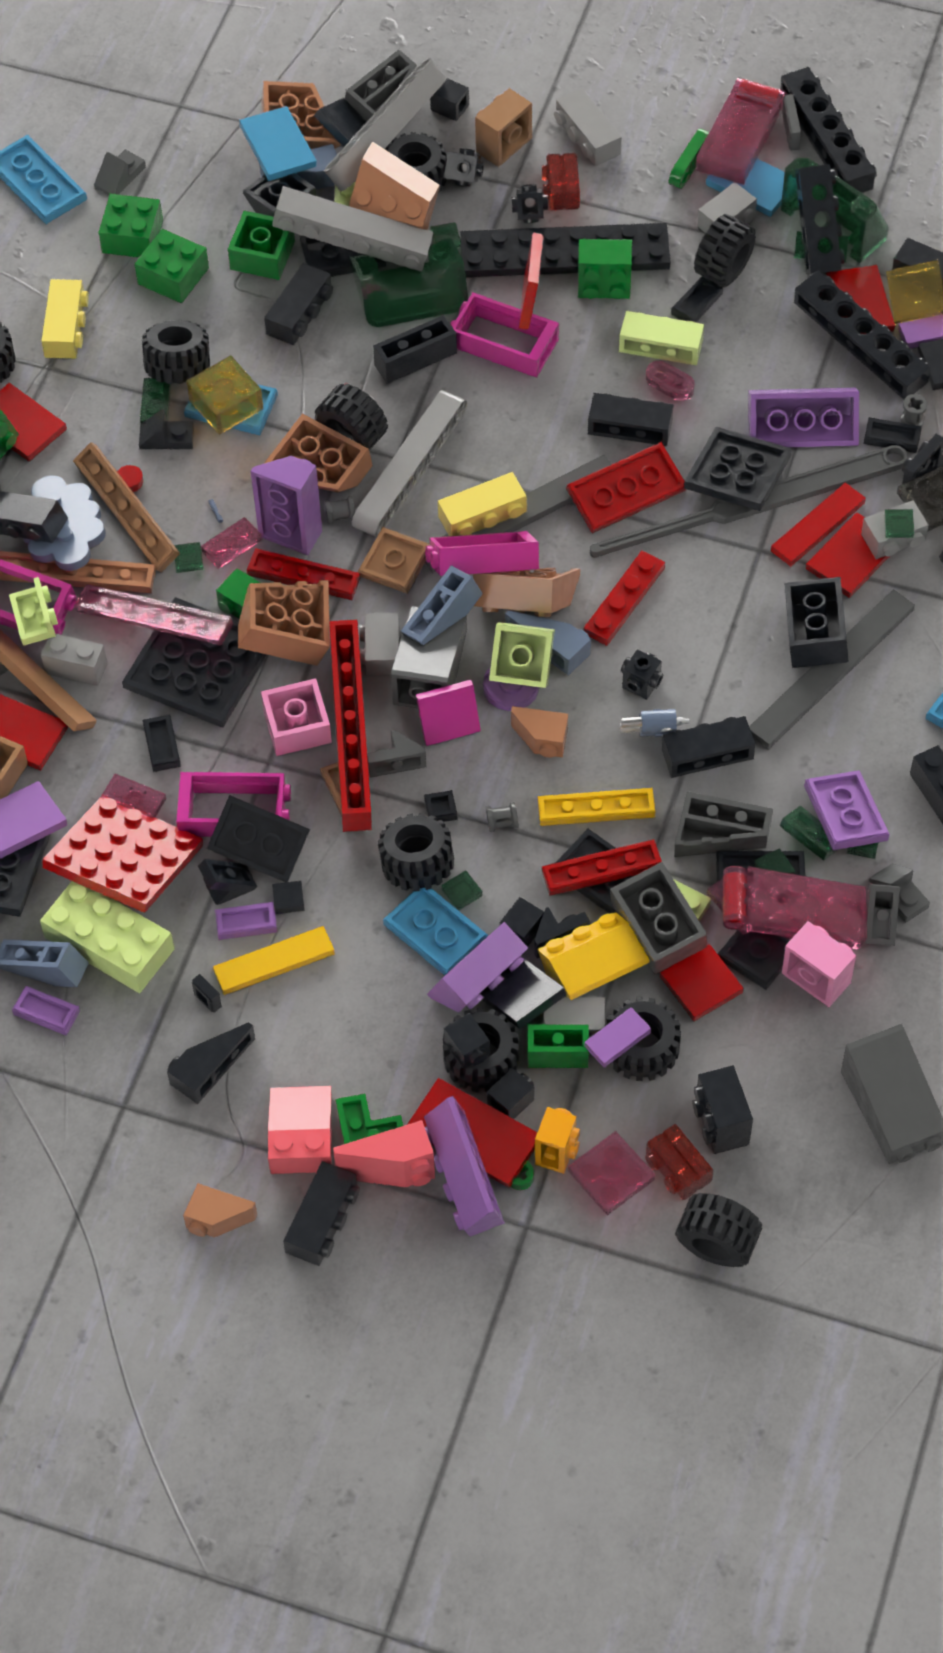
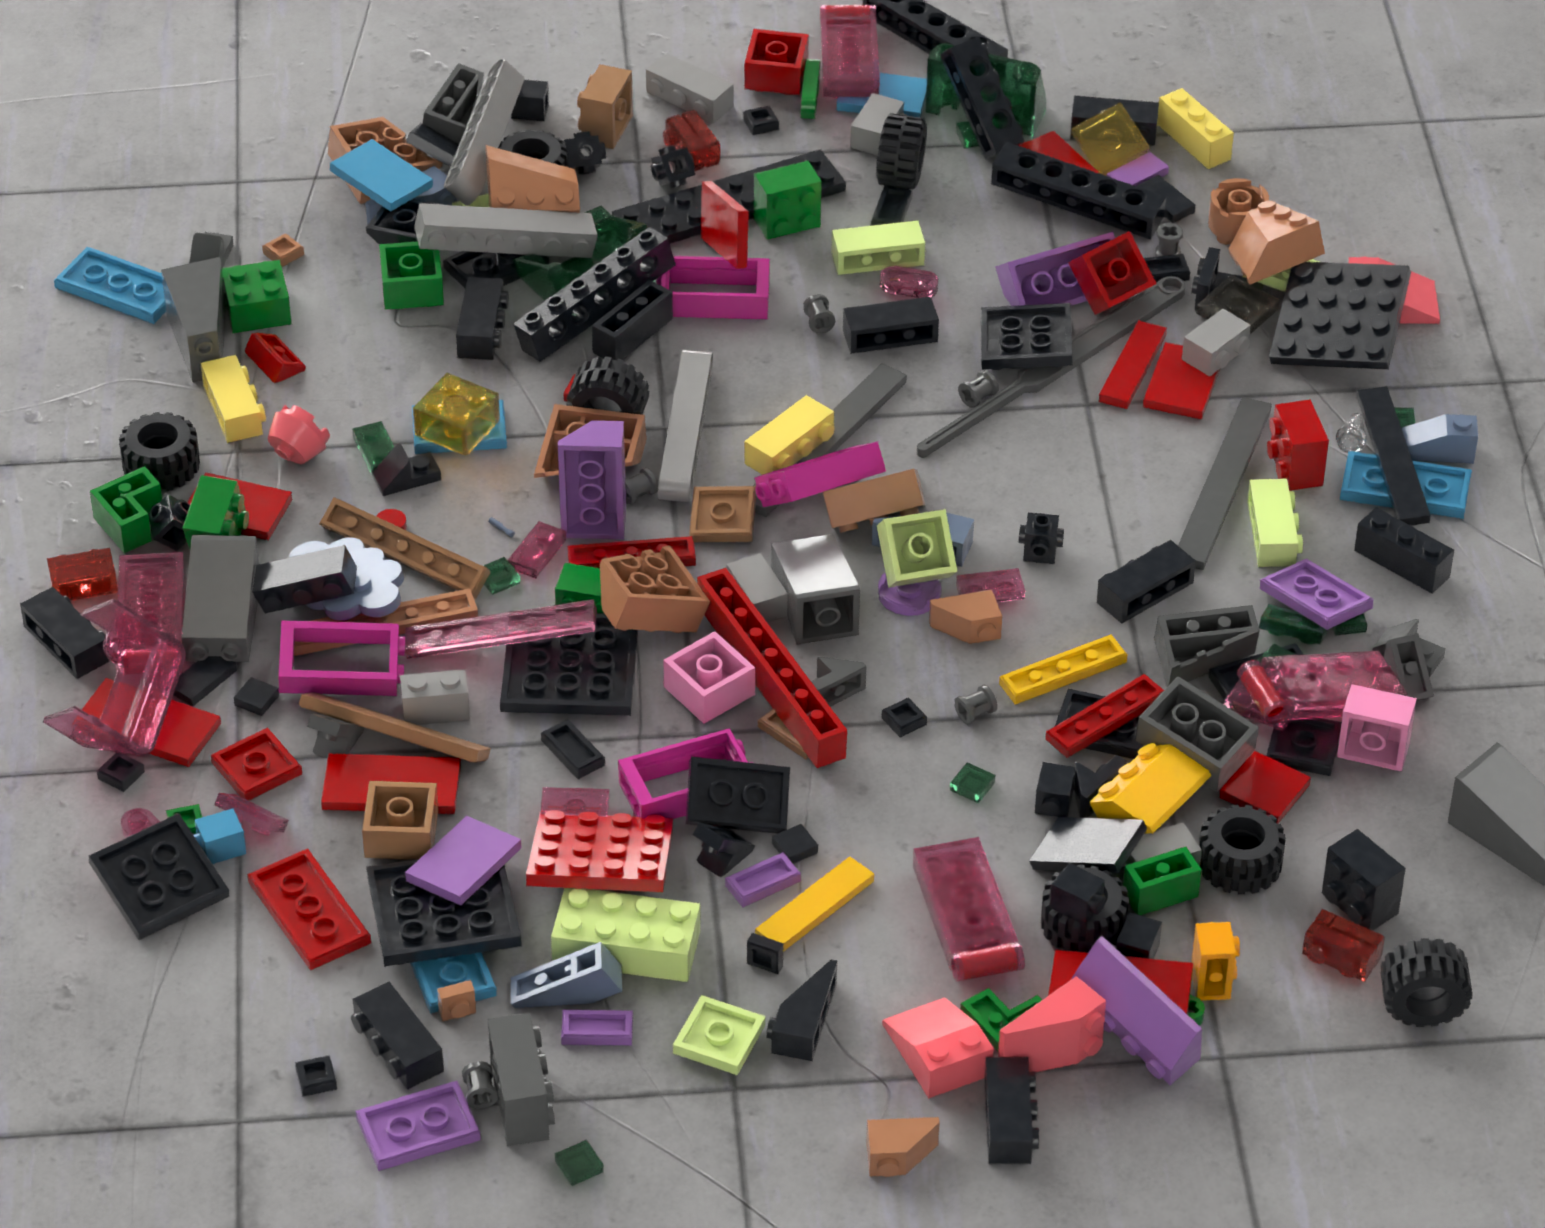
camera: 25 degrees left, 15 degrees down
(32, 613) = (376, 658): yellowish green bracket -> none
(72, 230) = (196, 311): none -> dark grey slope
(90, 373) = (296, 435): none -> coral cone
(120, 287) = (273, 357): none -> red slope
(132, 1055) = (719, 1035): none -> yellowish green plate
(171, 265) = (323, 319): green brick -> none
(175, 351) = (378, 390): black tyre -> none
(179, 185) = (283, 249): none -> nougat tile
(389, 1002) = (967, 909): none -> clear pink hinge
(395, 313) = (593, 294): none -> black brick
(419, 868) = (910, 757): black tyre -> none
(434, 929) = (956, 817): dark azure tile -> none
(444, 606) = (812, 525): sand blue slope -> none
(448, 712) = (868, 624): dark pink tile -> none
(480, 970) = (1042, 837): medium lavender slope -> none
(578, 385) = (820, 318): none -> dark grey bush
(579, 706) = (1005, 584): none -> clear pink plate
(611, 1173) = (1281, 978): clear pink plate -> none
(617, 1037) = (1224, 845): medium lavender tile -> none
(624, 597) = (979, 479): red plate -> none
(626, 487) = (921, 385): red tile -> none
(634, 176) = (761, 120): none -> black tile
(653, 723) = (1081, 574): sand blue piece -> none
(671, 122) = (776, 61): none -> red brick
(671, 506) = (978, 388): none -> dark grey bush
(791, 122) = (894, 32): dark grey tile -> none
(816, 622) = (1190, 440): black brick -> none
(839, 431) = (1112, 273): none -> red brick
(849, 726) = (1274, 522): none -> yellowish green brick
(899, 523) = (1223, 329): clear green tile -> none
(906, 658) = (1298, 444): none -> red brick

